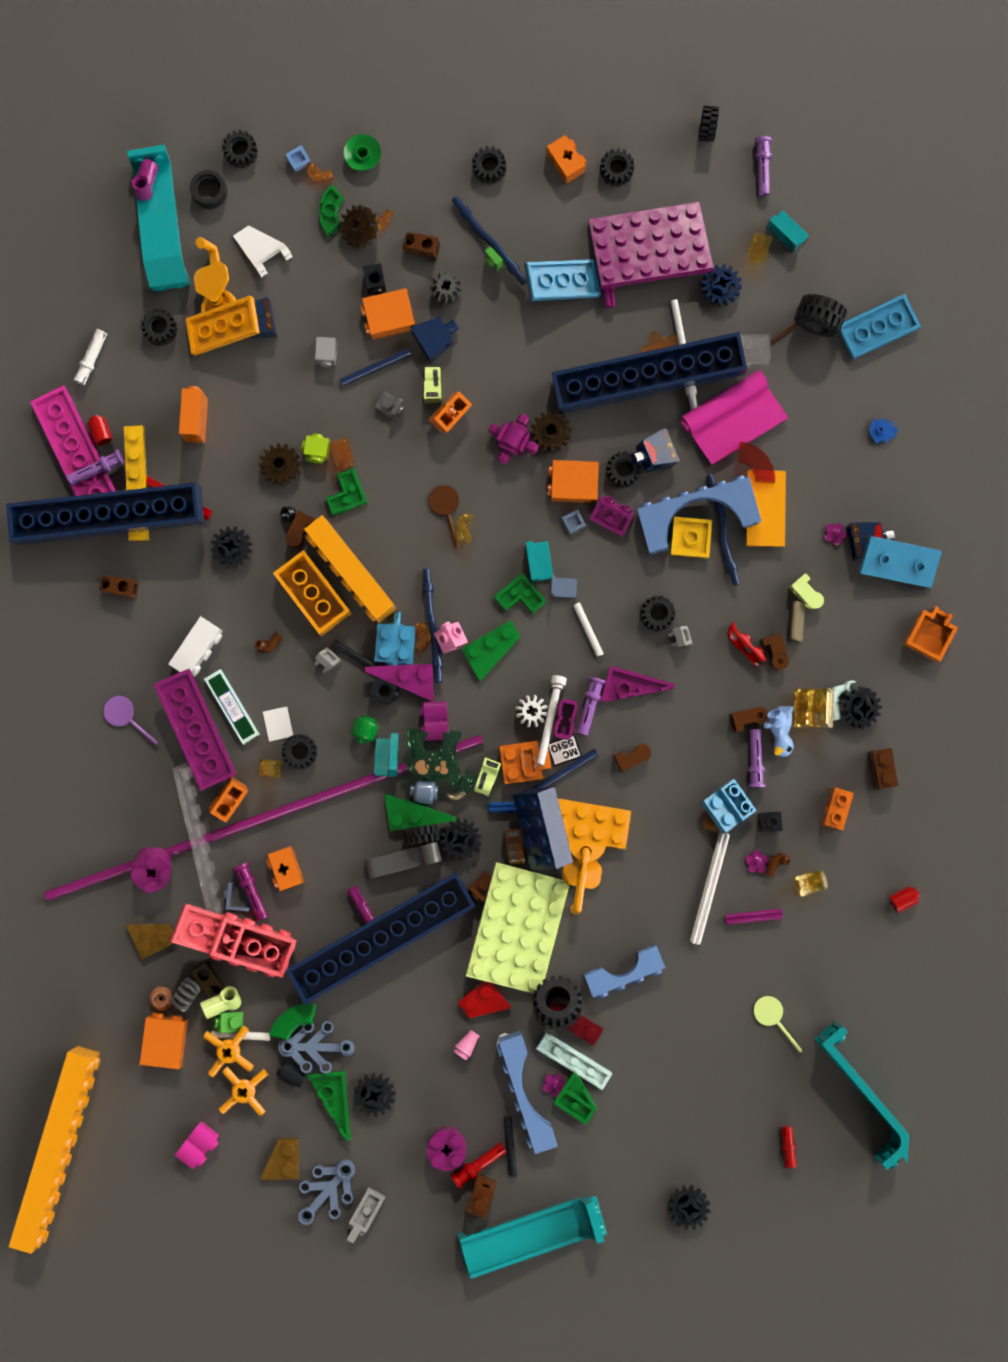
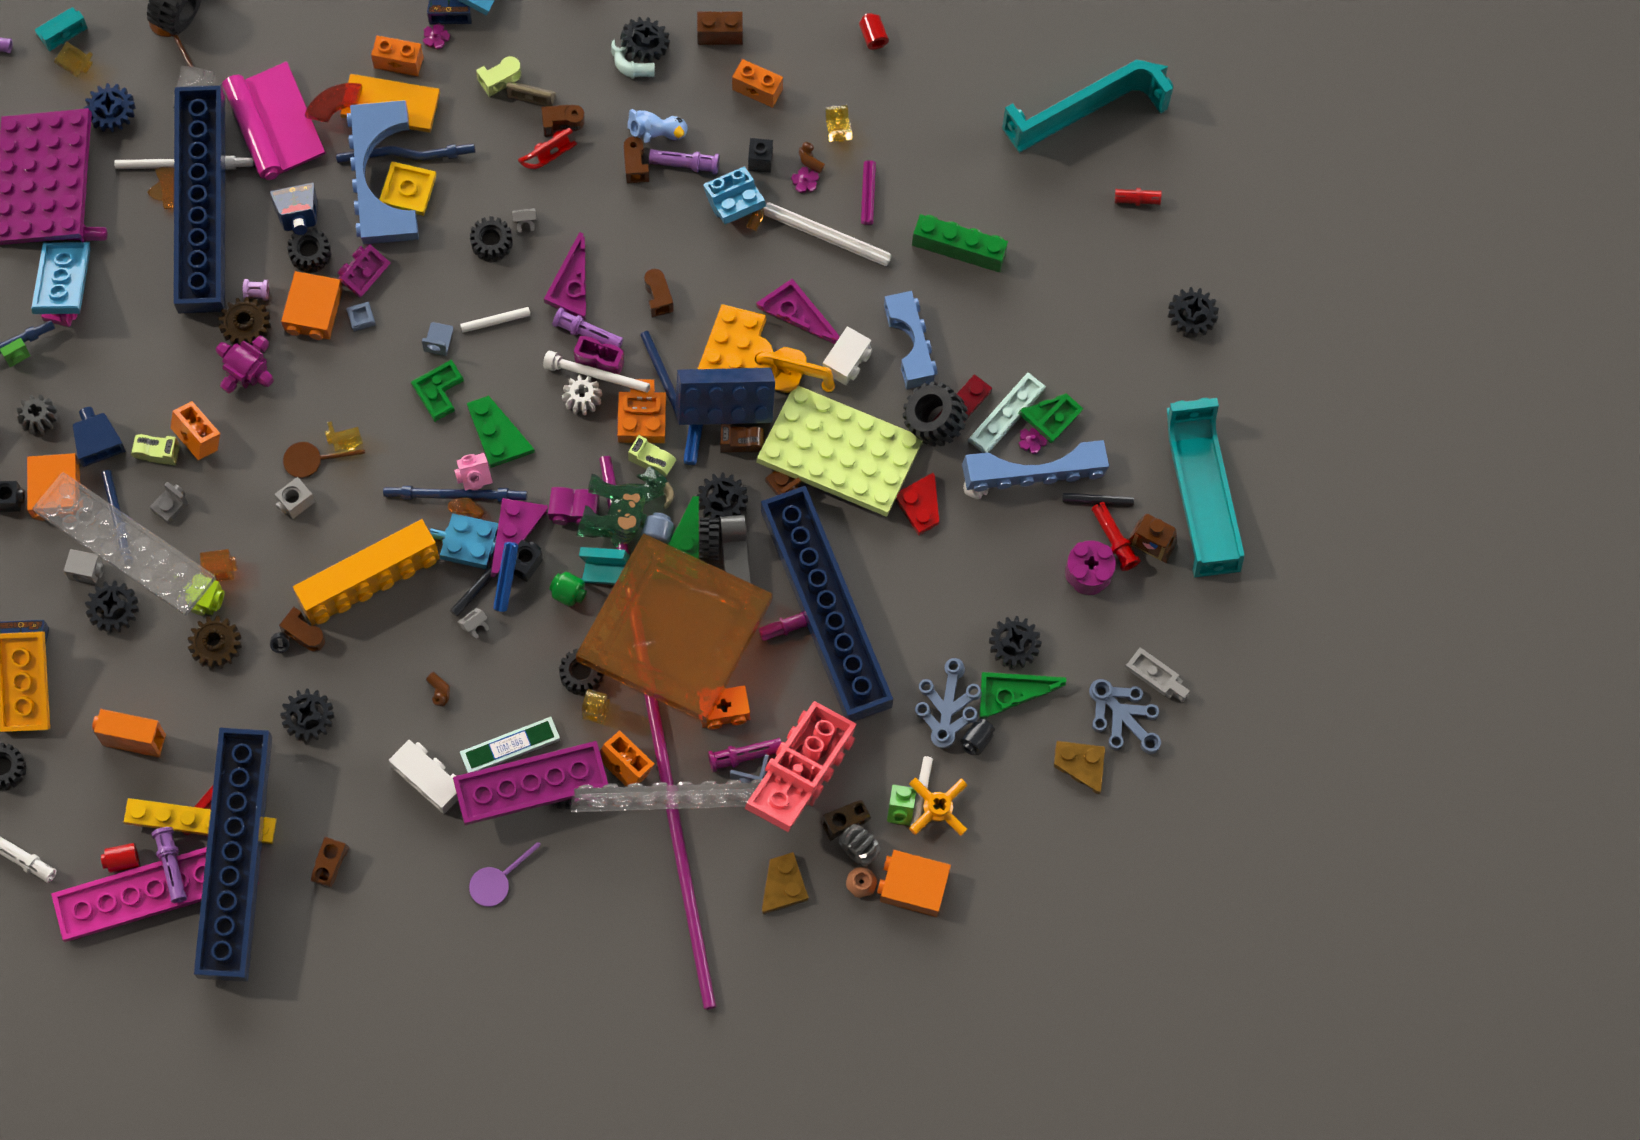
camera: 85 degrees left, 15 degrees down
(55, 1149) = (1028, 1029): light orange brick -> none
(151, 869) = (697, 863): magenta brick -> none
(197, 1145) = (1048, 860): dark pink brick -> none
(221, 1003) = (876, 804): yellowish green piece -> none
(238, 1085) = (991, 787): light orange bar -> none
(278, 723) = (542, 695): white sticker -> none
(288, 380) = (104, 599): none -> black gear
(292, 1019) = (910, 725): green tile -> none
(312, 593) = (386, 623): light orange brick -> none
(338, 820) = (674, 627): none -> clear orange tile
(342, 378) = (124, 543): none -> clear plate
(350, 497) = (272, 565): green tile -> none
(364, 678) = (505, 576): none -> blue axle
(411, 508) = (298, 489): none -> light grey brick
(466, 1045) = (973, 530): bright pink cone -> none
(539, 561) = (400, 362): teal panel -> none
(564, 751) = (637, 366): sticker -> none
(581, 430) = (256, 289): none -> lavender bush
(601, 921) = (847, 355): none -> white brick
(638, 871) = (794, 307): none -> magenta wing
(718, 1001) = (959, 242): none -> green brick
(769, 1012) = (981, 194): yellowish green piece -> none
(809, 506) = (397, 55): none -> orange brick
(814, 708) = (636, 86): clear yellow brick -> none

